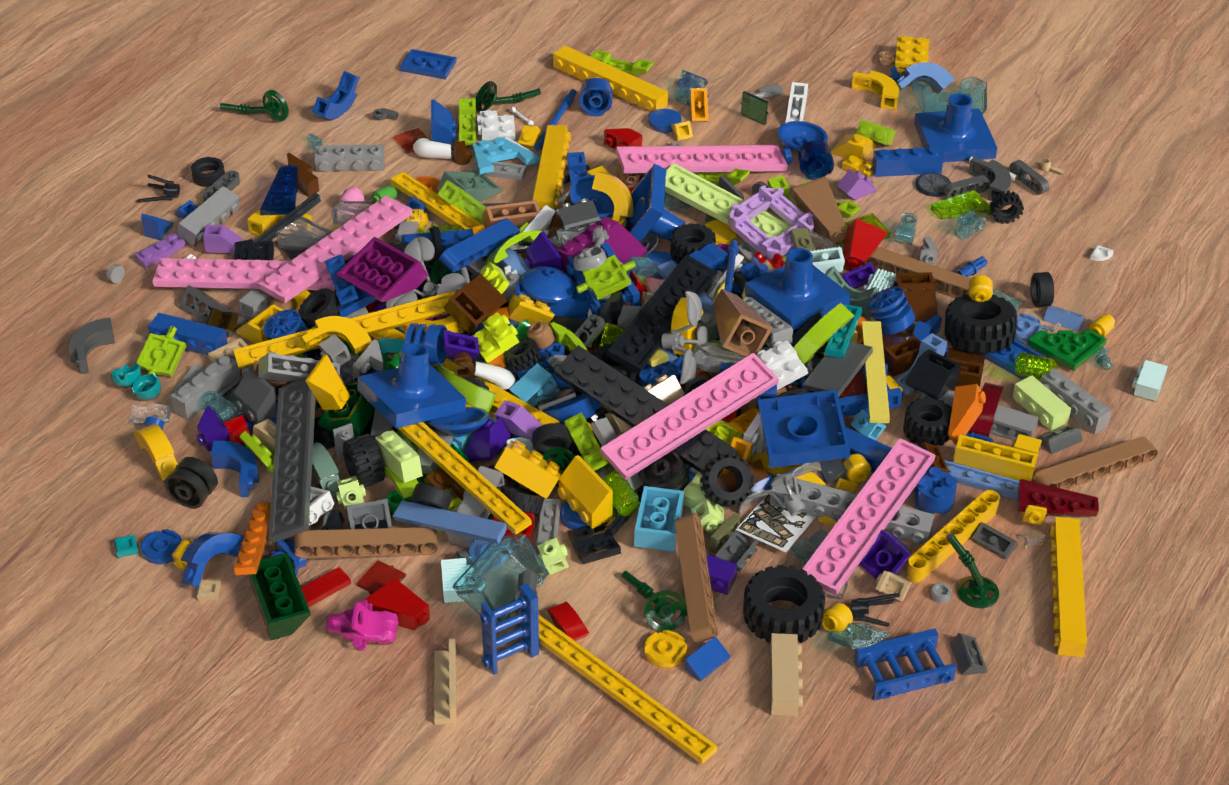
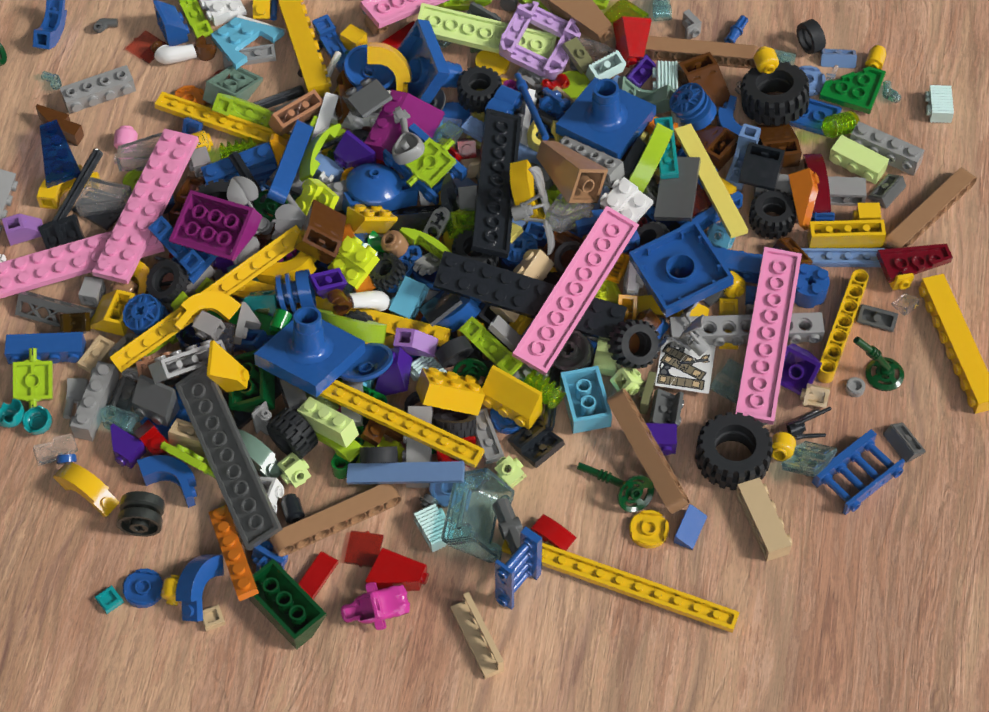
camera: 20 degrees left, 15 degrees up
(369, 515) = (323, 490): dark grey slope -> none
(388, 191) = (154, 123): bright green brick -> none

